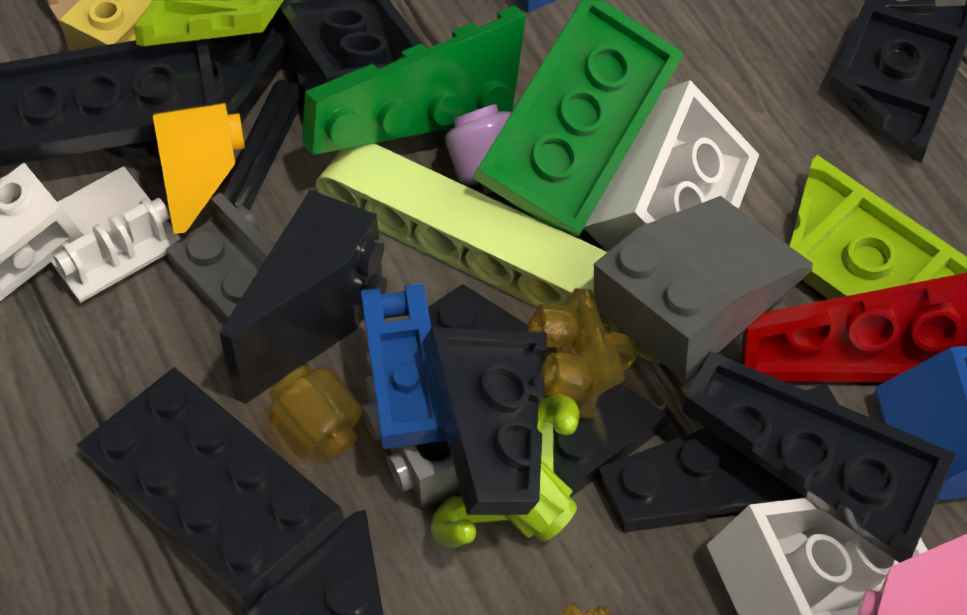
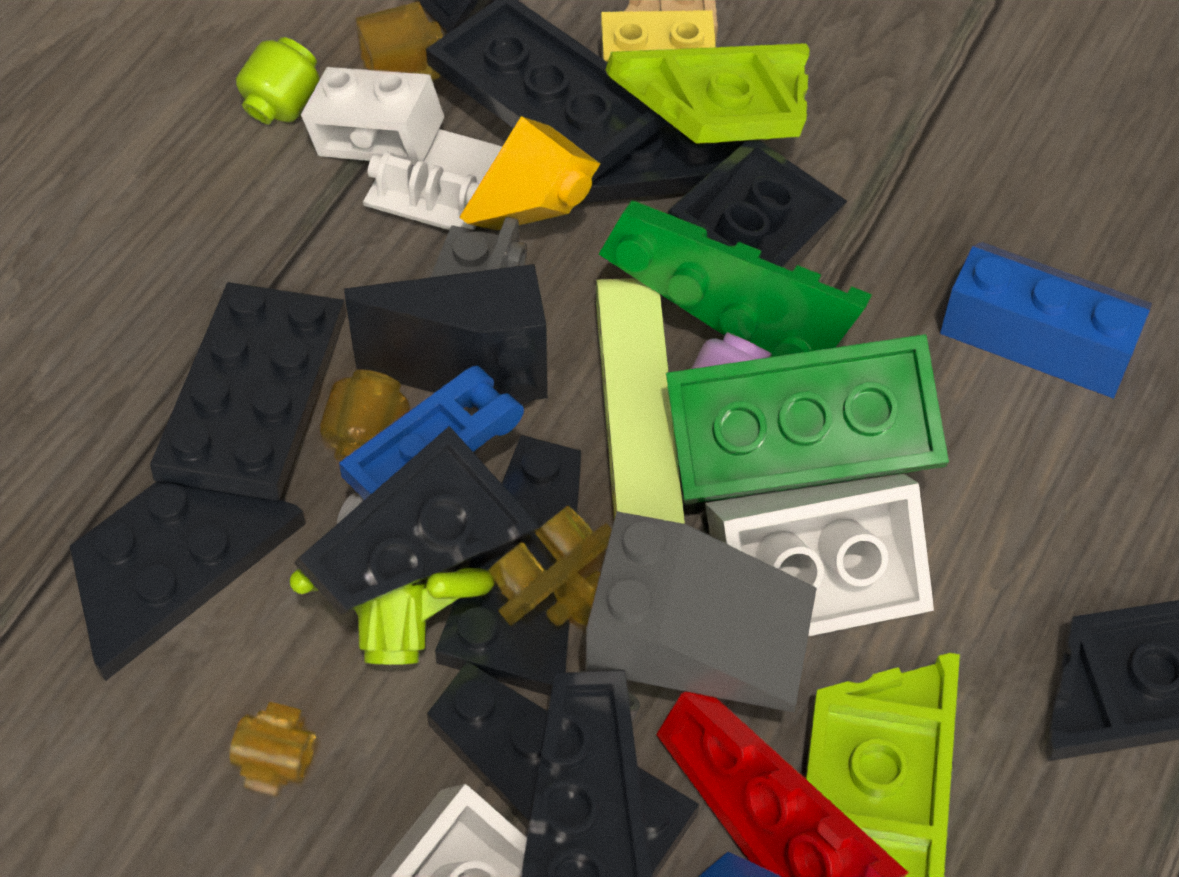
camera: 55 degrees right, 0 degrees up
(262, 144) = (579, 232): black axle -> none

